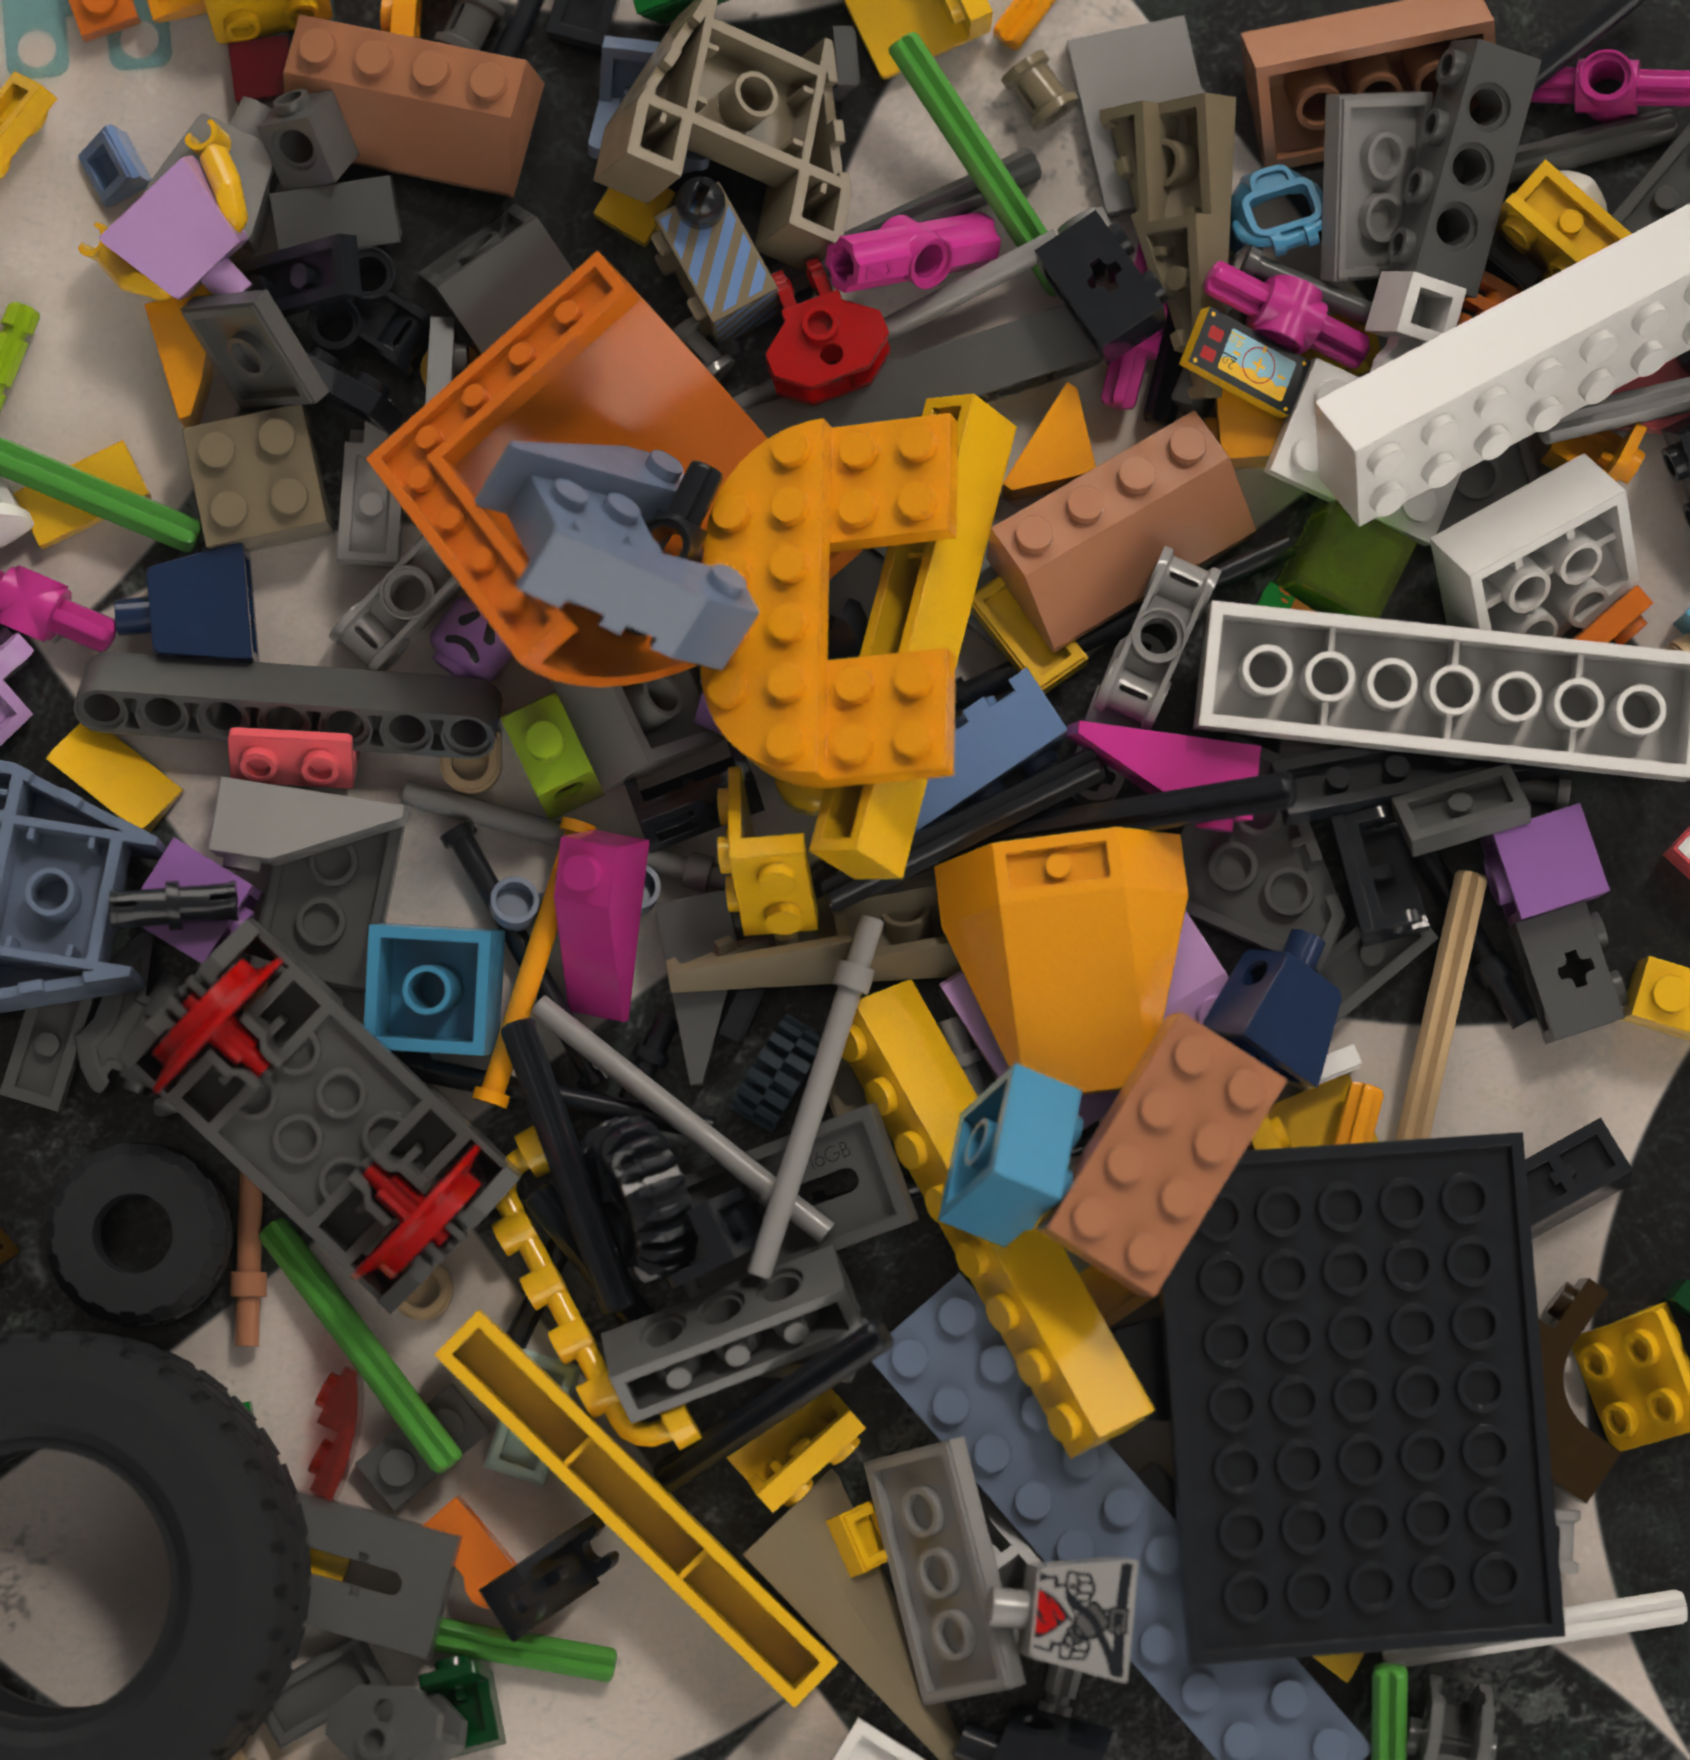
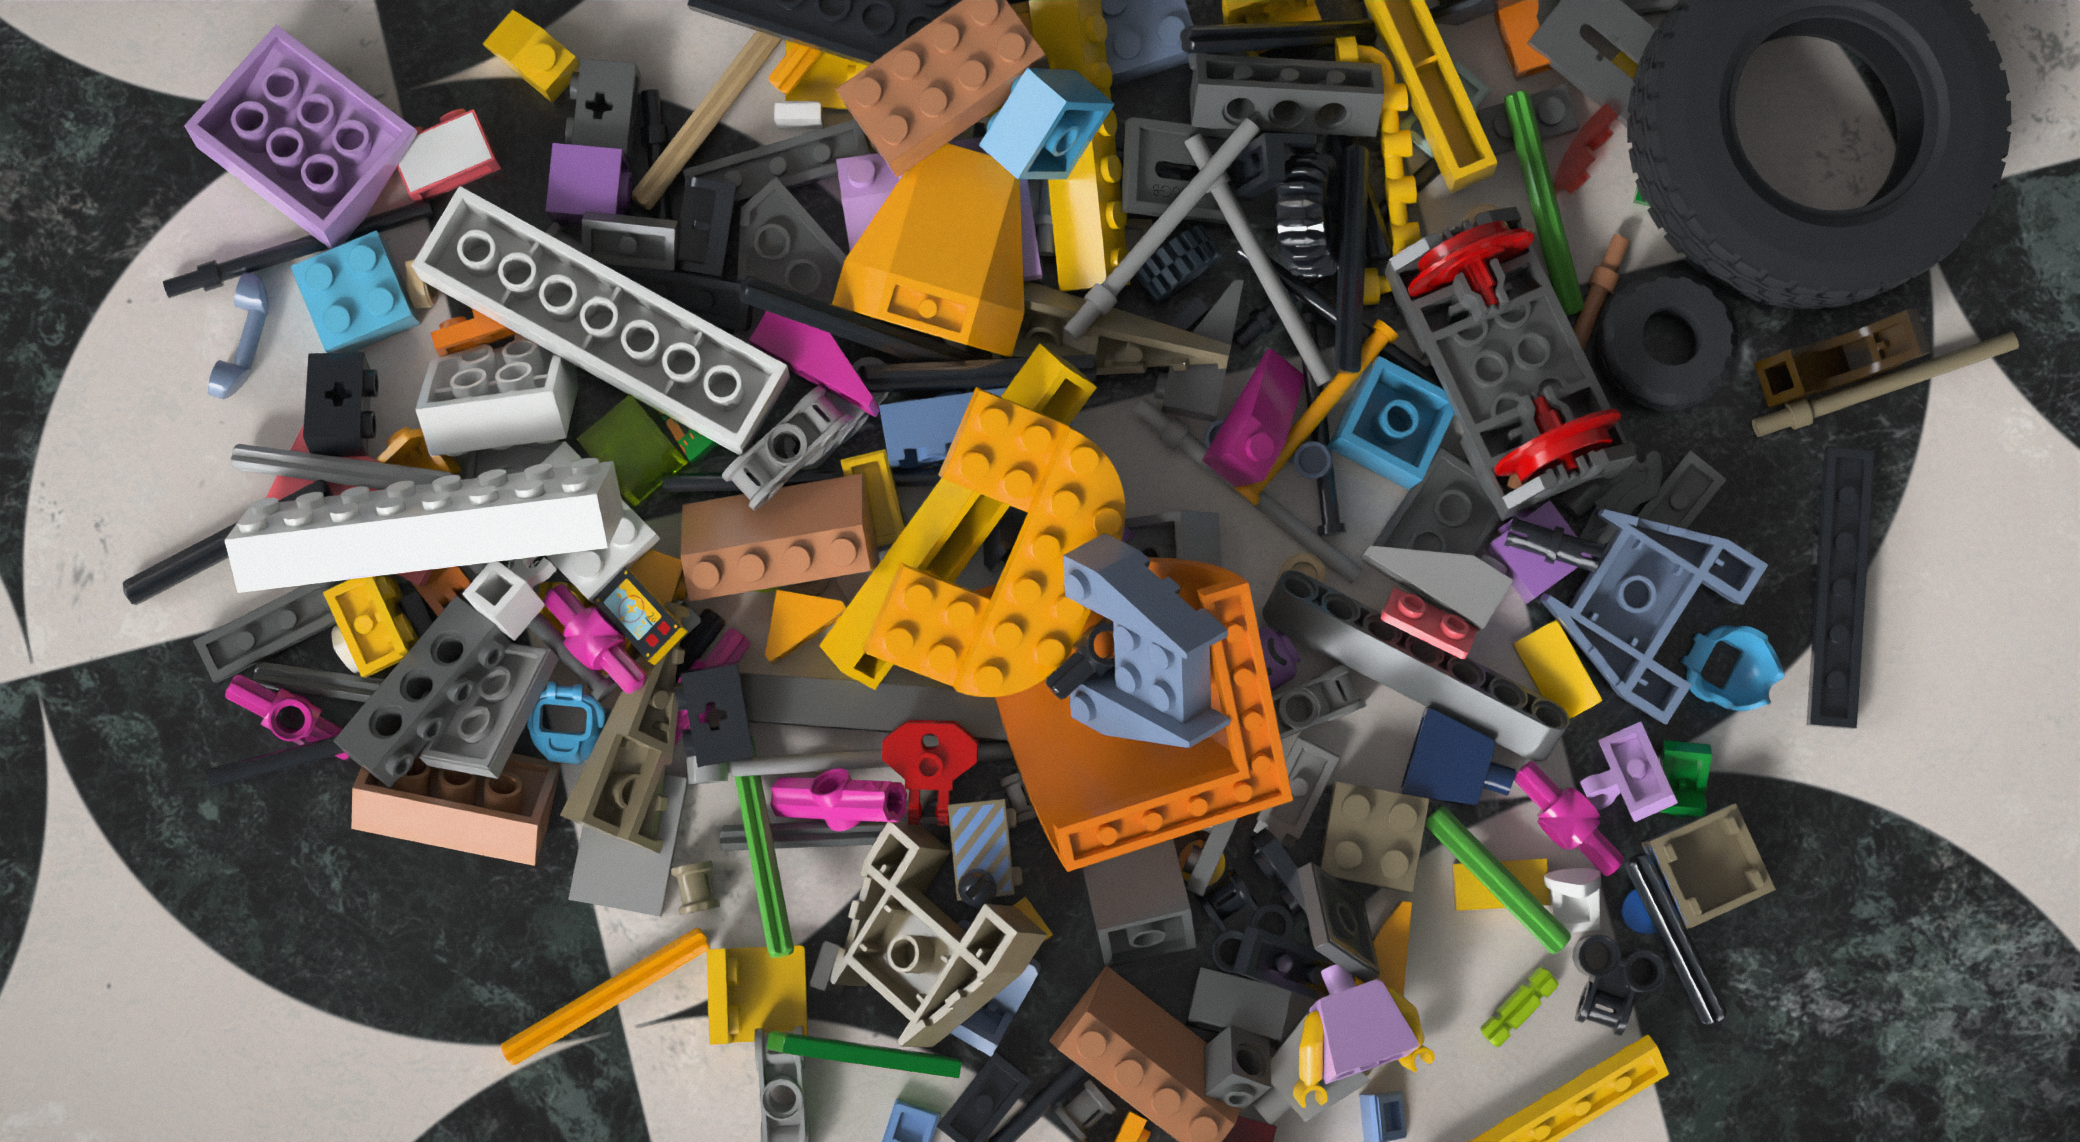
camera: 155 degrees left, 0 degrees up
(552, 755) = (1247, 551): lime torso -> none
(688, 802) = (1161, 481): black hinge -> none
(769, 873) = (1133, 386): yellow bracket -> none
(1280, 1009) = (817, 156): dark blue torso -> none

